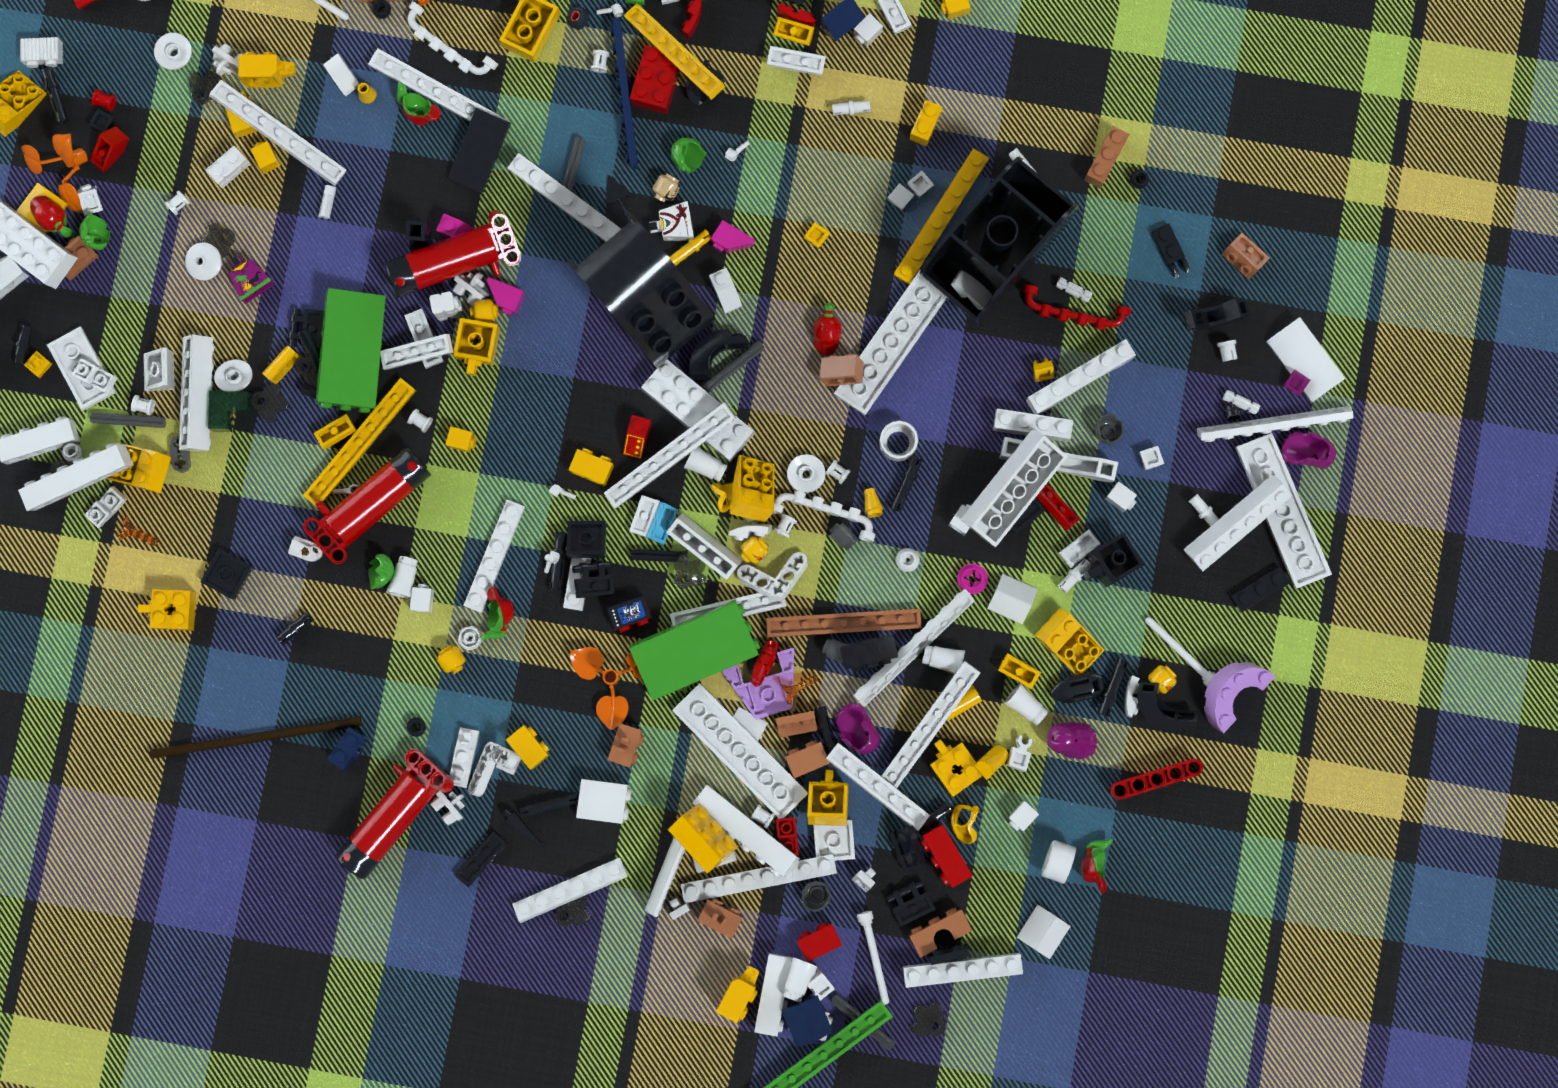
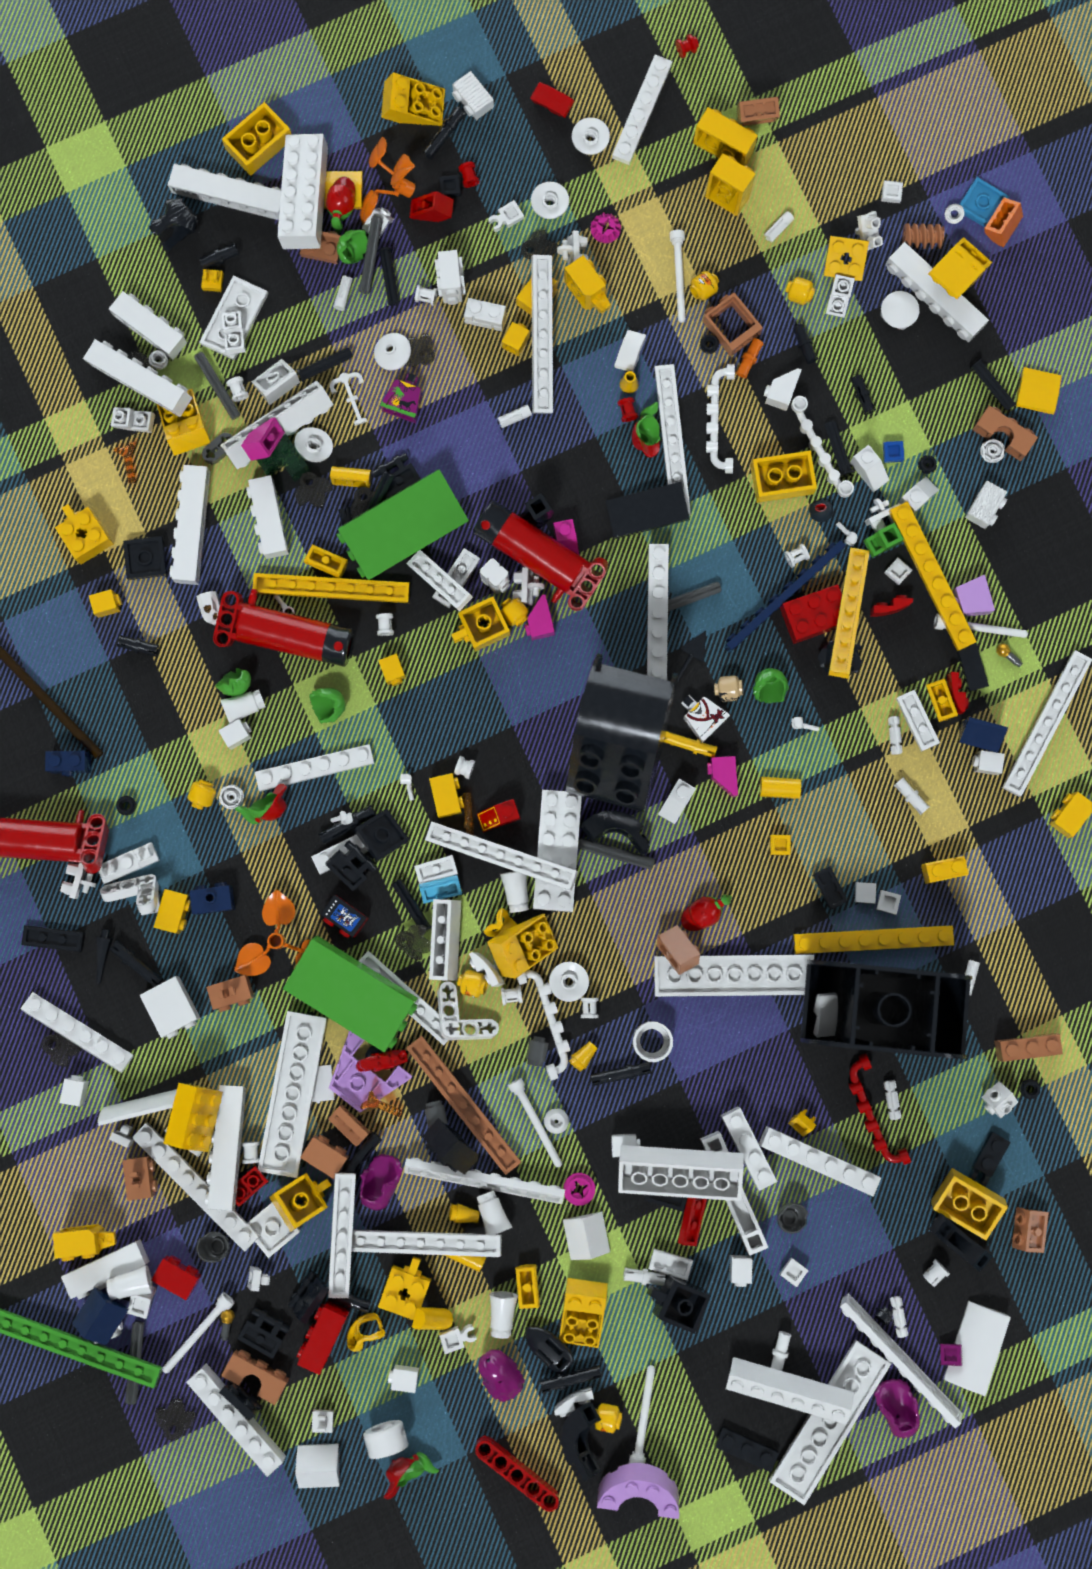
camera: 50 degrees right, 0 degrees up
(112, 223) = (370, 255): none -> dark grey axle
(126, 267) = (342, 295): none -> white piece
(139, 221) = (389, 276): none -> black axle
(160, 92) = (508, 214): none -> white plate
(174, 322) = (324, 364): none -> black axle
(177, 172) = (450, 277): none -> white brick
(196, 315) = (344, 378): none -> white piece
(201, 411) = (263, 440): none -> dark pink slope
(224, 31) = (610, 234): none -> dark pink gear
(226, 518) = (190, 525): none -> white brick
(240, 630) = (105, 603): none -> yellow brick
(265, 452) = (268, 517): none -> white brick
(387, 109) = (627, 409): none -> red bush
(451, 509) = (327, 704): none -> bright green hair
(541, 709) = (213, 899): none -> dark blue brick
(579, 437) = (464, 767): none -> white wheel
(614, 923) = (74, 1091): none -> white brick
(618, 460) = (468, 821): none -> clear orange piece
(772, 203) = (780, 787): none -> yellow brick
(795, 86) = (895, 735): none -> white axle
(861, 571) = (517, 1088): none -> white piece
(877, 221) = (830, 888): none -> black plate
(878, 924) = (227, 1318): none -> piece
(928, 682) = (463, 1214): none -> yellow cone
(1011, 904) = (322, 1421): none -> white tile
(1131, 208) = (999, 1100): none -> white brick
(1192, 286) = (969, 1204): none -> yellow brick

